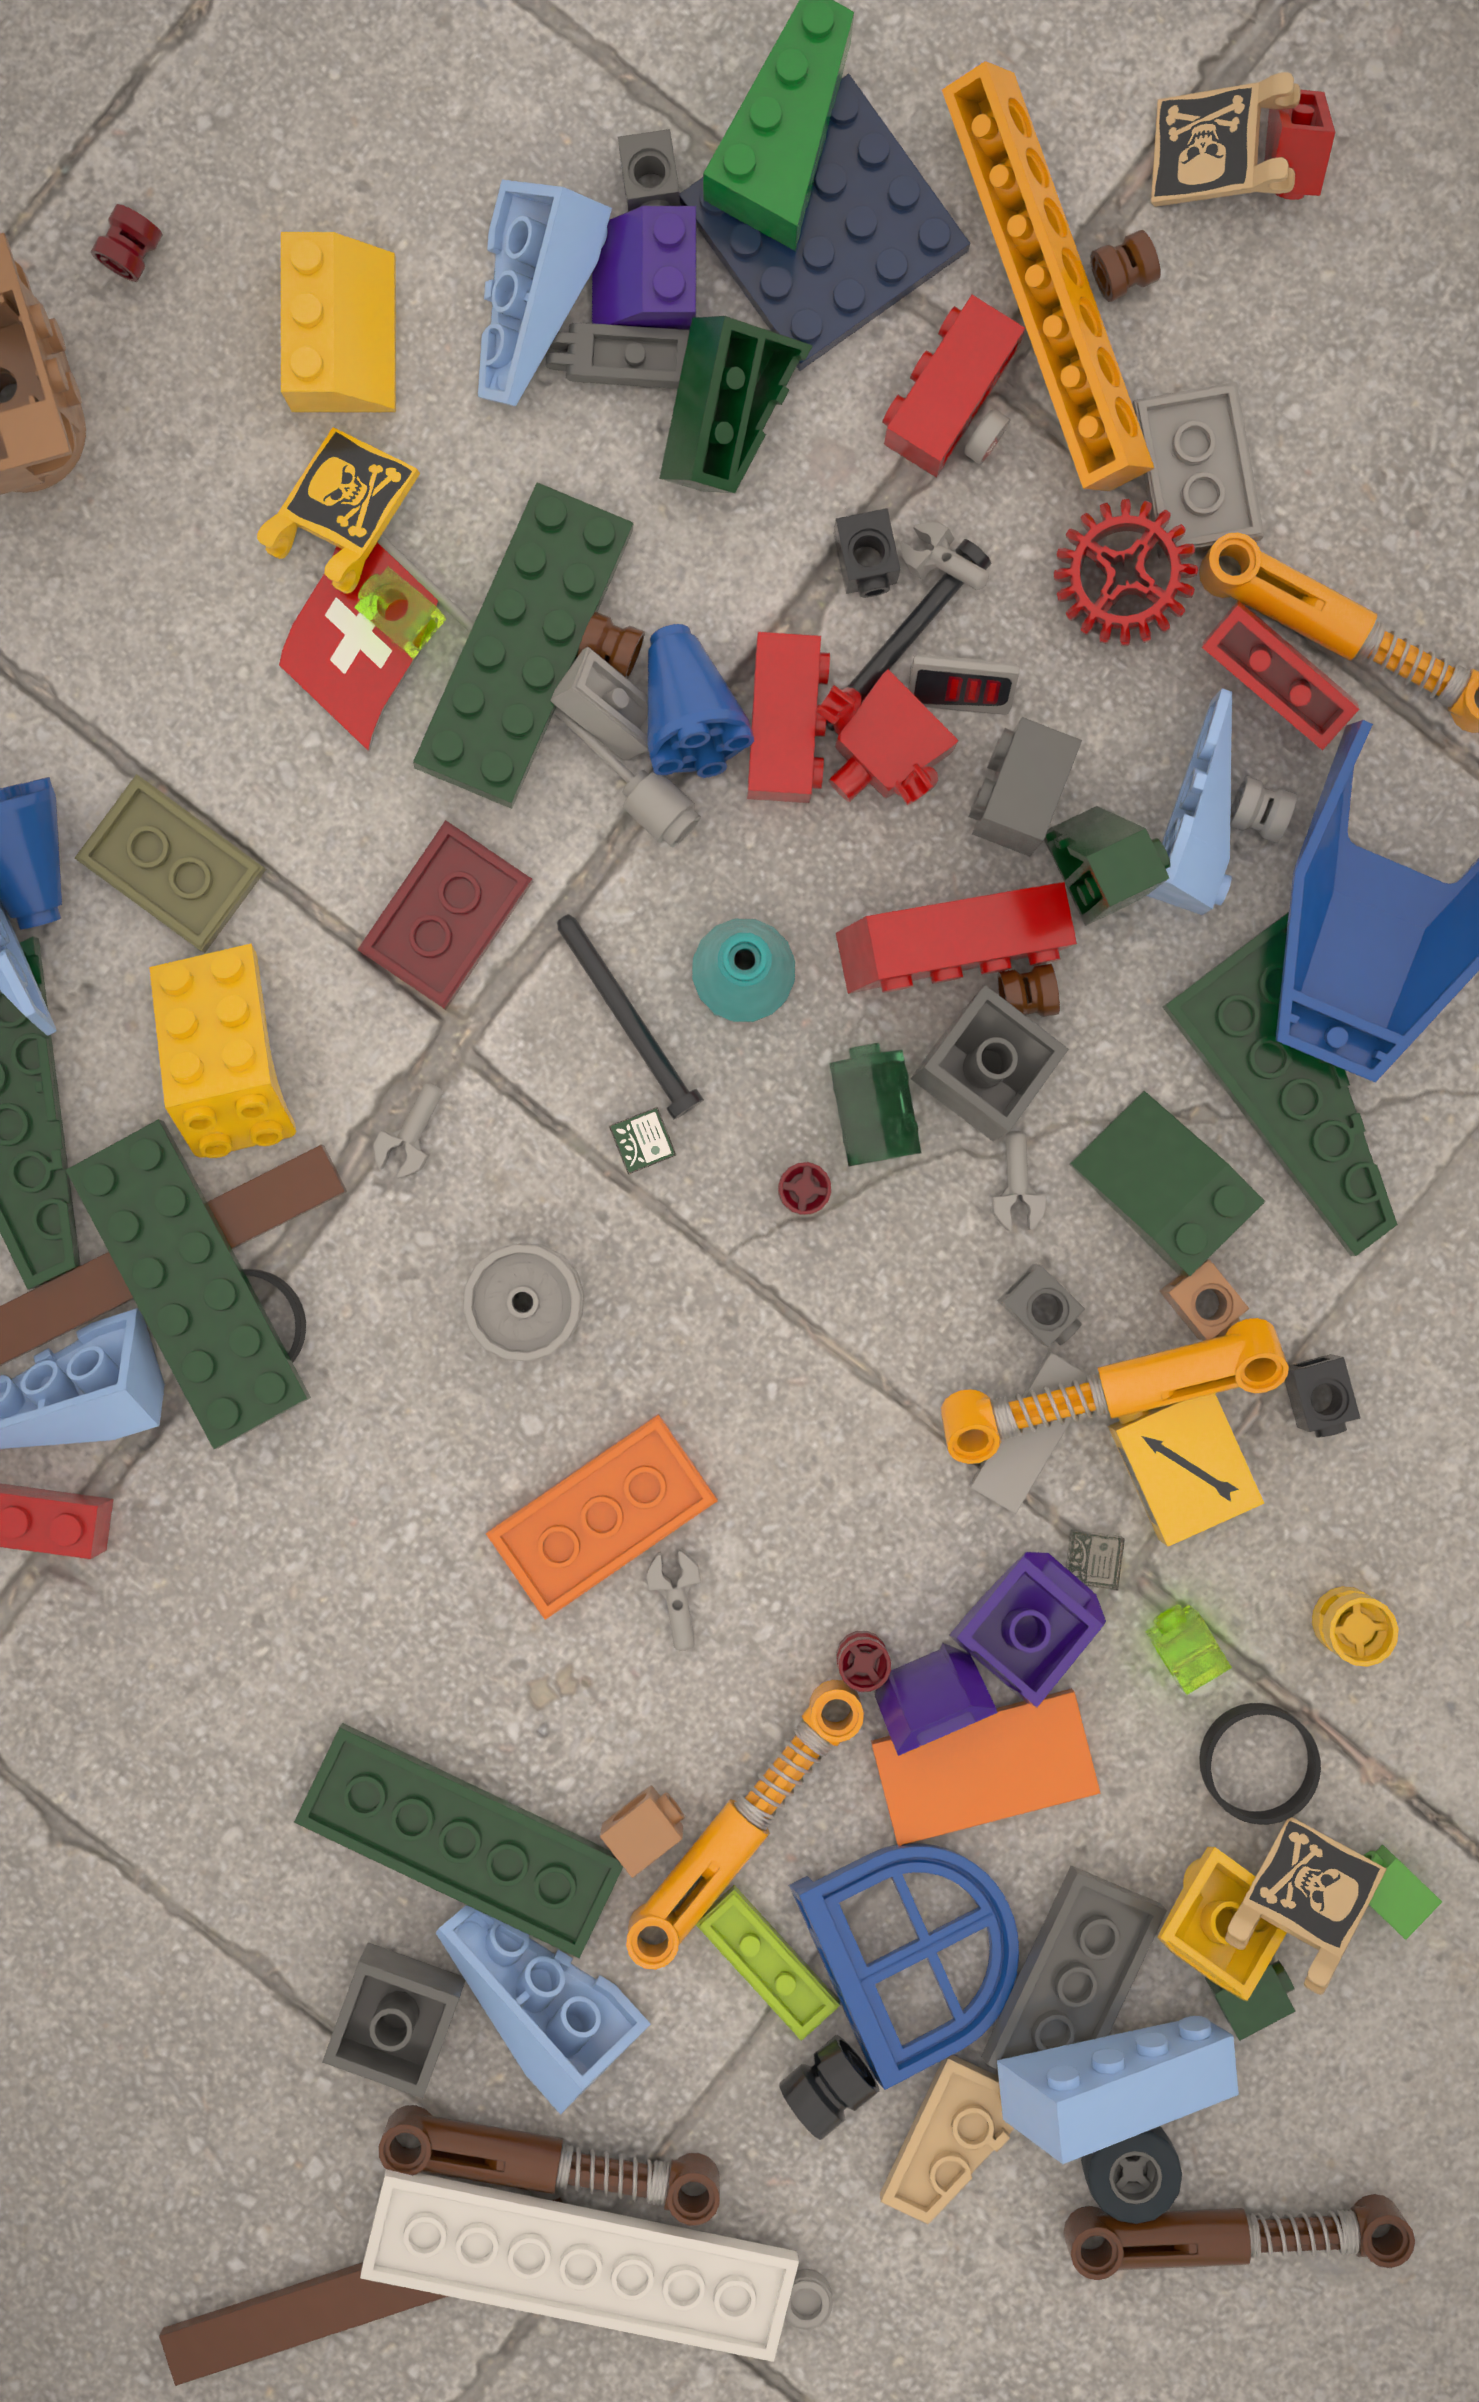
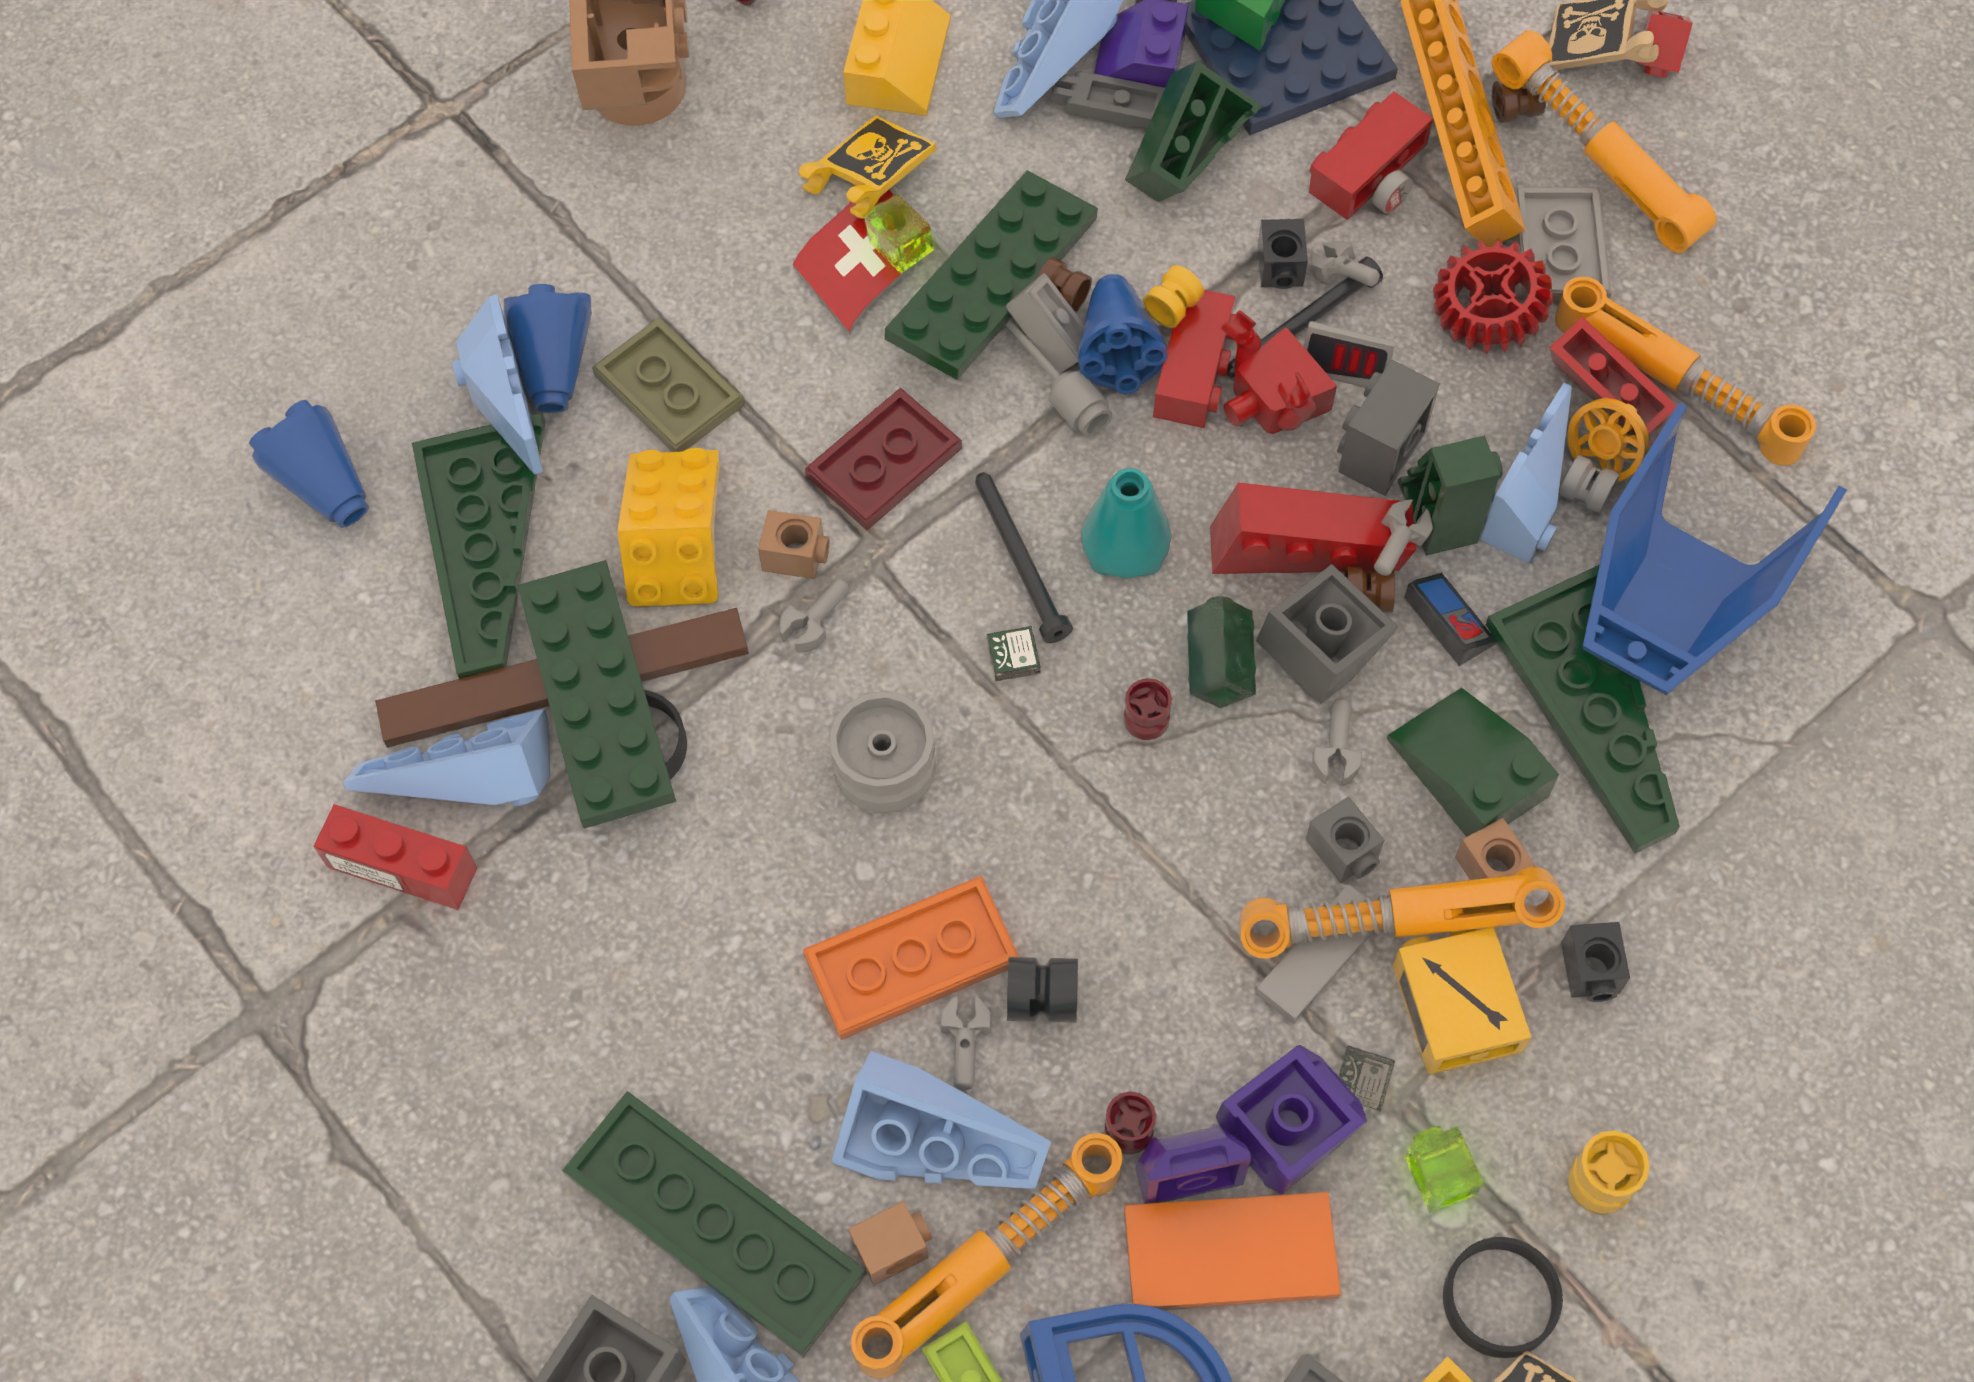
camera: 10 degrees right, 25 degrees down
(344, 1049) = (787, 528): none -> medium nougat brick
(642, 1702) = (922, 1127): none -> light blue wedge
(748, 1537) = (1042, 989): none -> black wheel
(749, 661) = (1176, 293): none -> yellow wheel
(1058, 935) = (1401, 535): none -> light grey bar
(1122, 1005) = (1449, 617): none -> slope
(1279, 752) = (1608, 438): none -> light orange wheel
(1332, 409) = (1677, 216): none -> light orange piece

